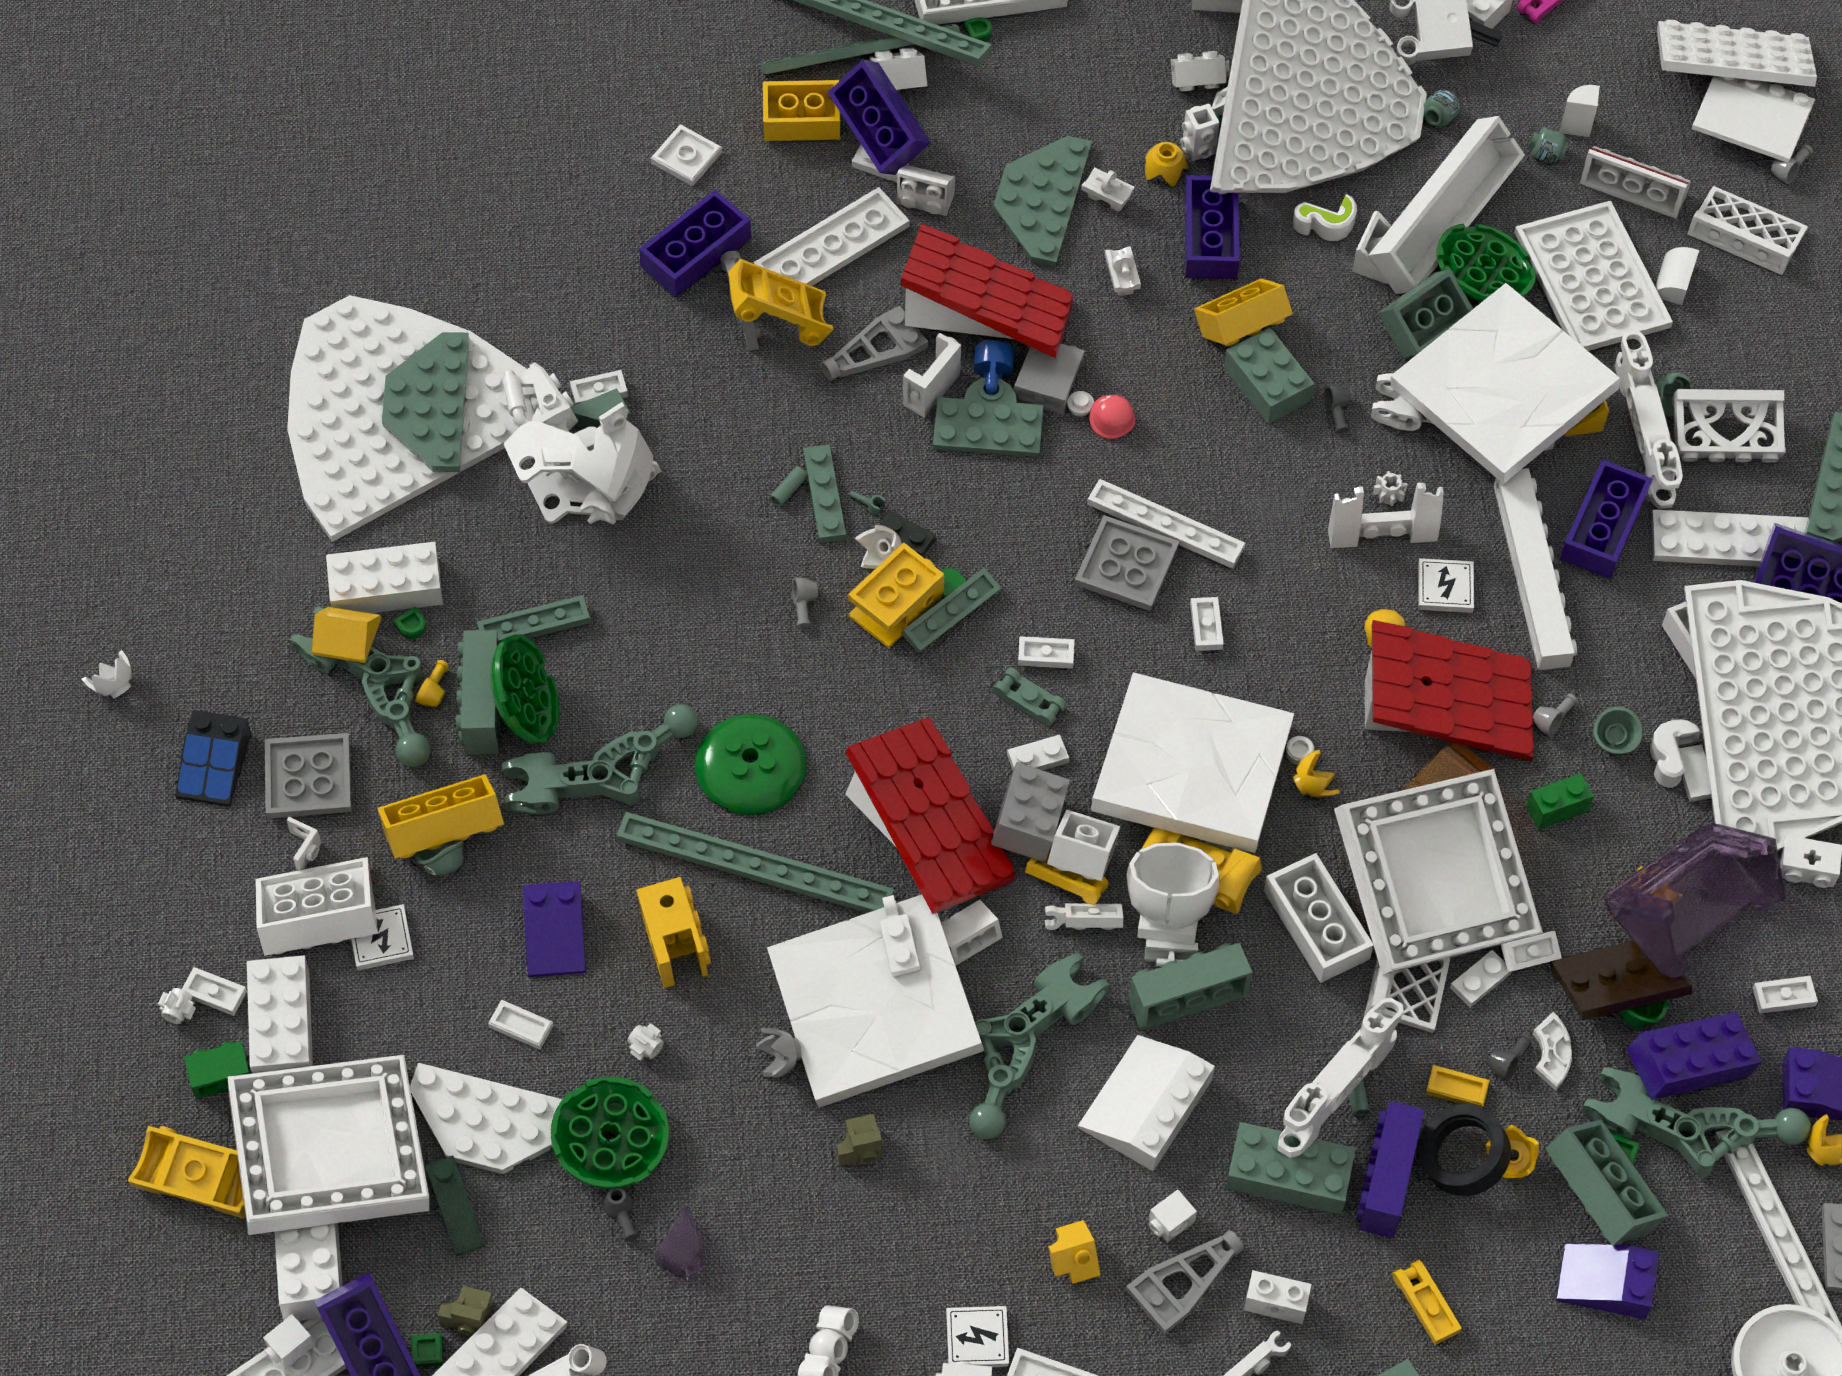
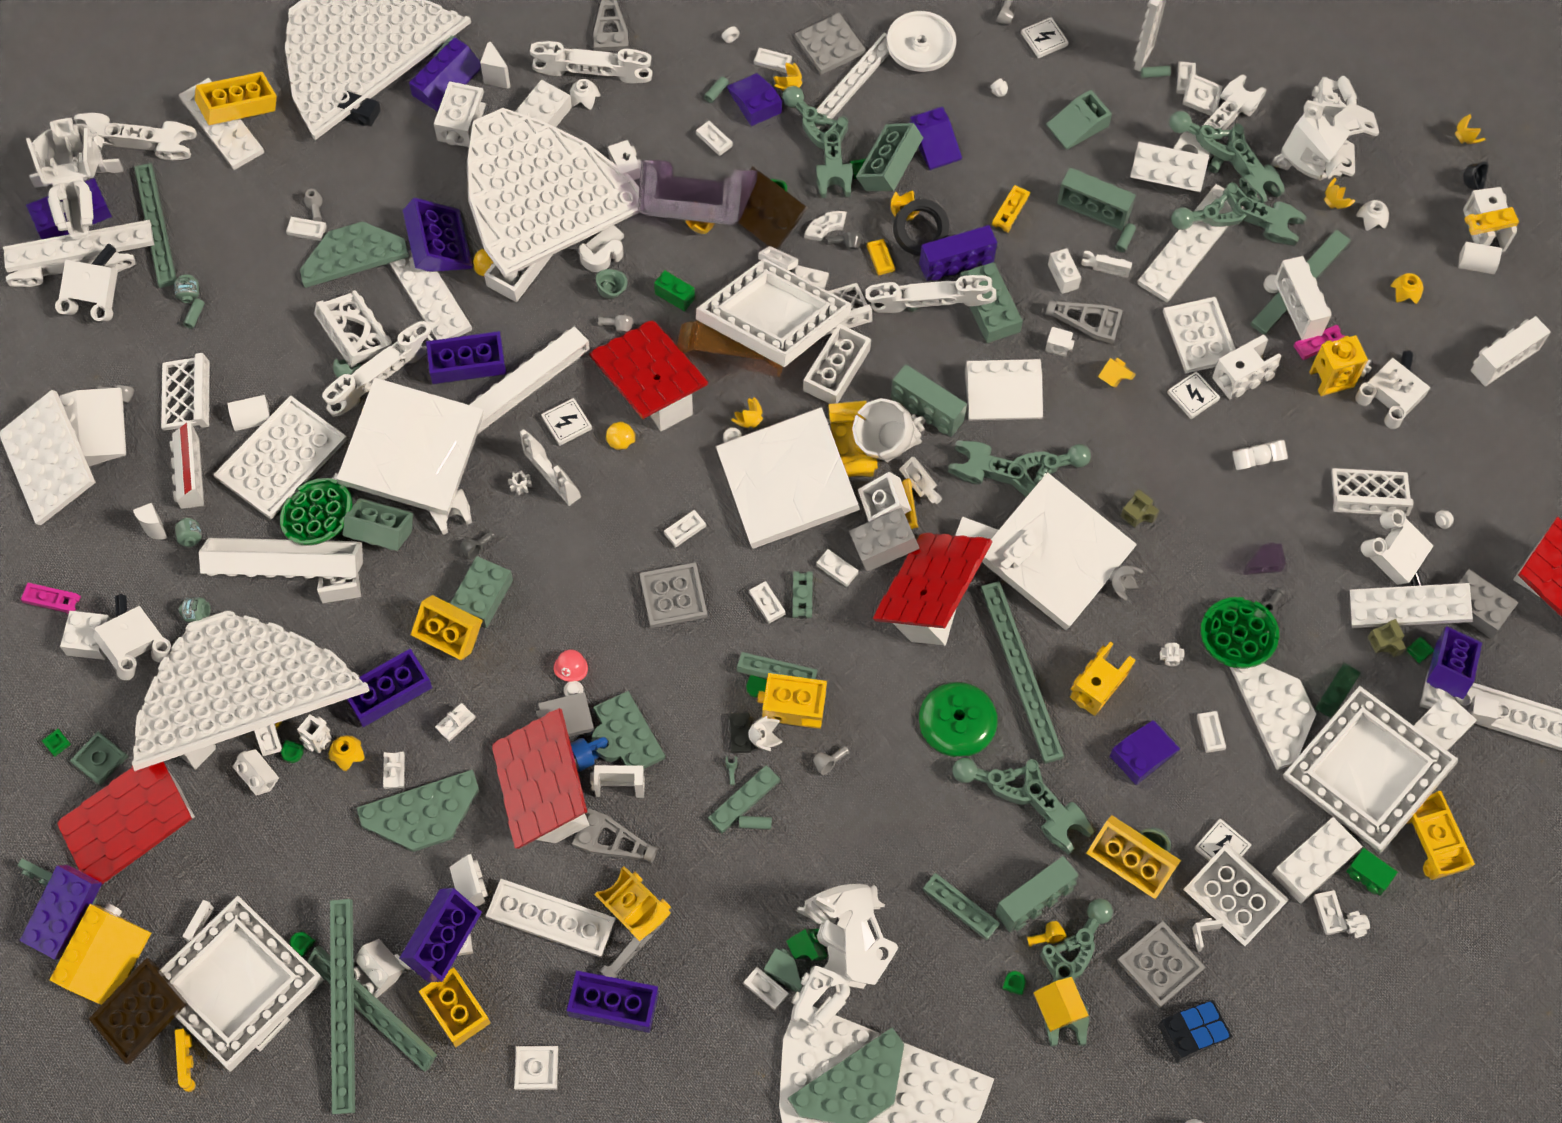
camera: 125 degrees left, 5 degrees up
(385, 578) = (1001, 1017): white brick -> none
(523, 690) = (1024, 861): green brick -> none
(1166, 522) = (630, 590): white plate -> none
(1326, 223) = (335, 621): white animal -> none
(1693, 1055) = (788, 152): dark purple brick -> none

